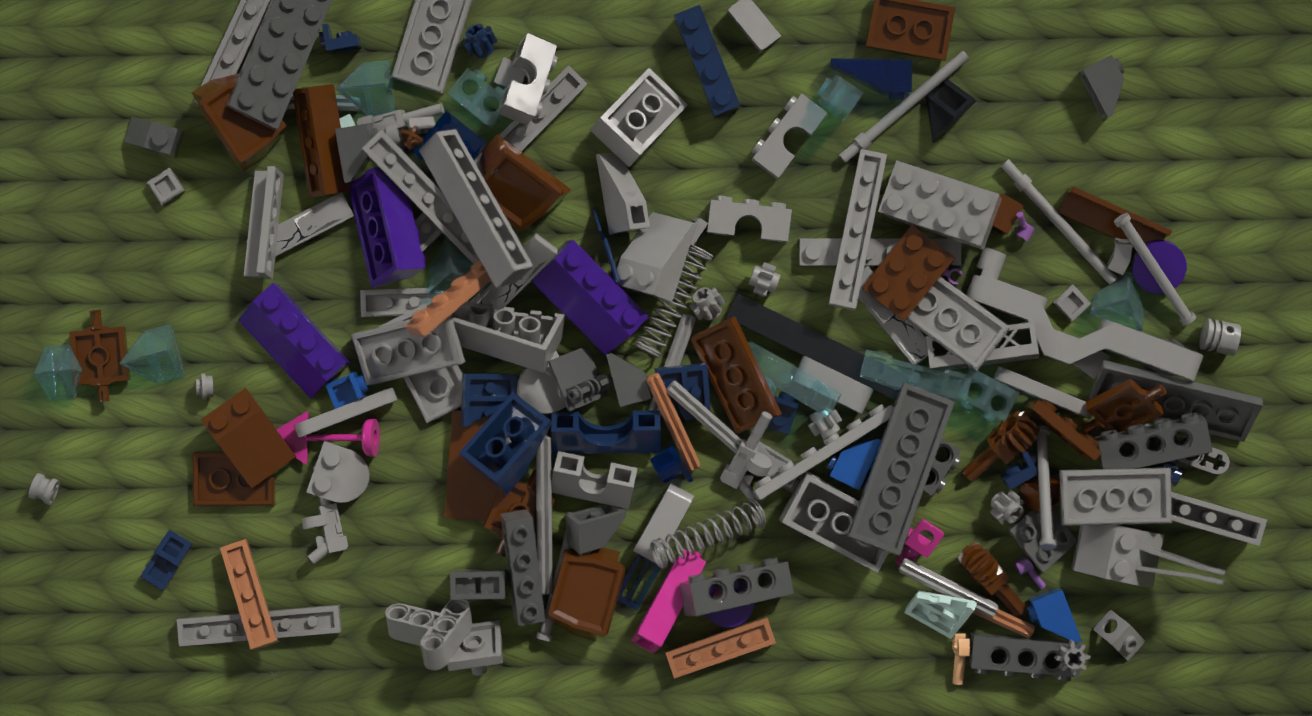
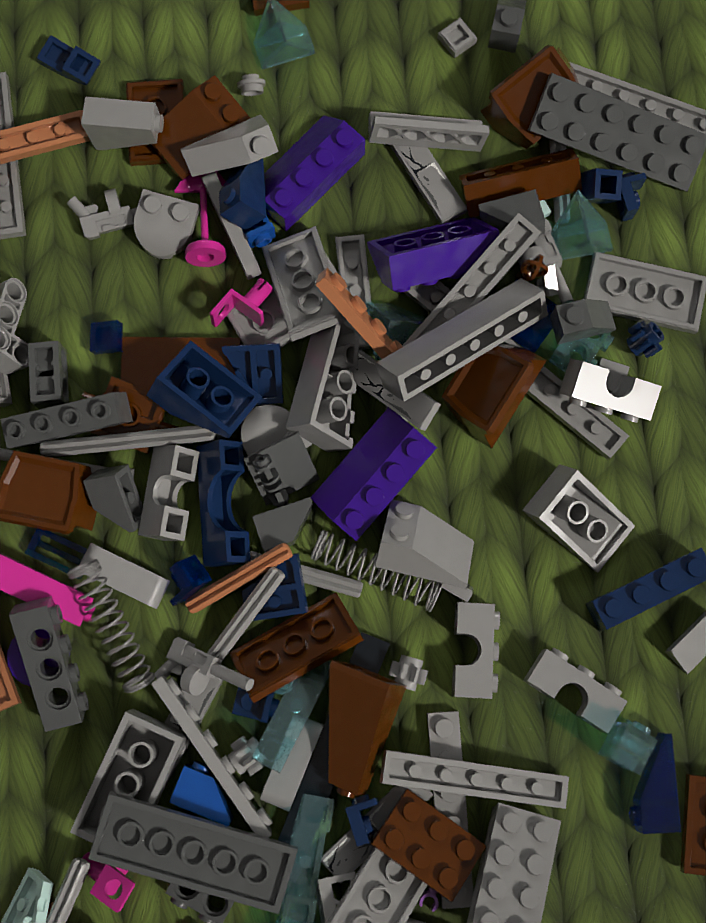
camera: 90 degrees right, 10 degrees down
(242, 507) = (121, 122): none -> light grey slope
(275, 406) = (231, 147): none -> light grey slope
(314, 397) = (243, 195): none -> dark blue slope
(331, 66) = (602, 185): none -> dark blue brick
(424, 400) = (245, 304): none -> dark pink bracket
(444, 532) = (106, 337): none -> clear blue plate
(462, 98) = (581, 320): none -> dark grey slope
(608, 250) = (449, 482): dark blue piece -> none
(622, 198) = (488, 504): light grey slope -> none
(707, 303) = (375, 608): light grey gear -> none
(803, 323) = (359, 723): none -> reddish brown slope
(864, 140) = (579, 781): light grey bar -> none
(889, 328) = (360, 825): none -> dark blue bracket
(945, 106) = (630, 876): black slope -> none

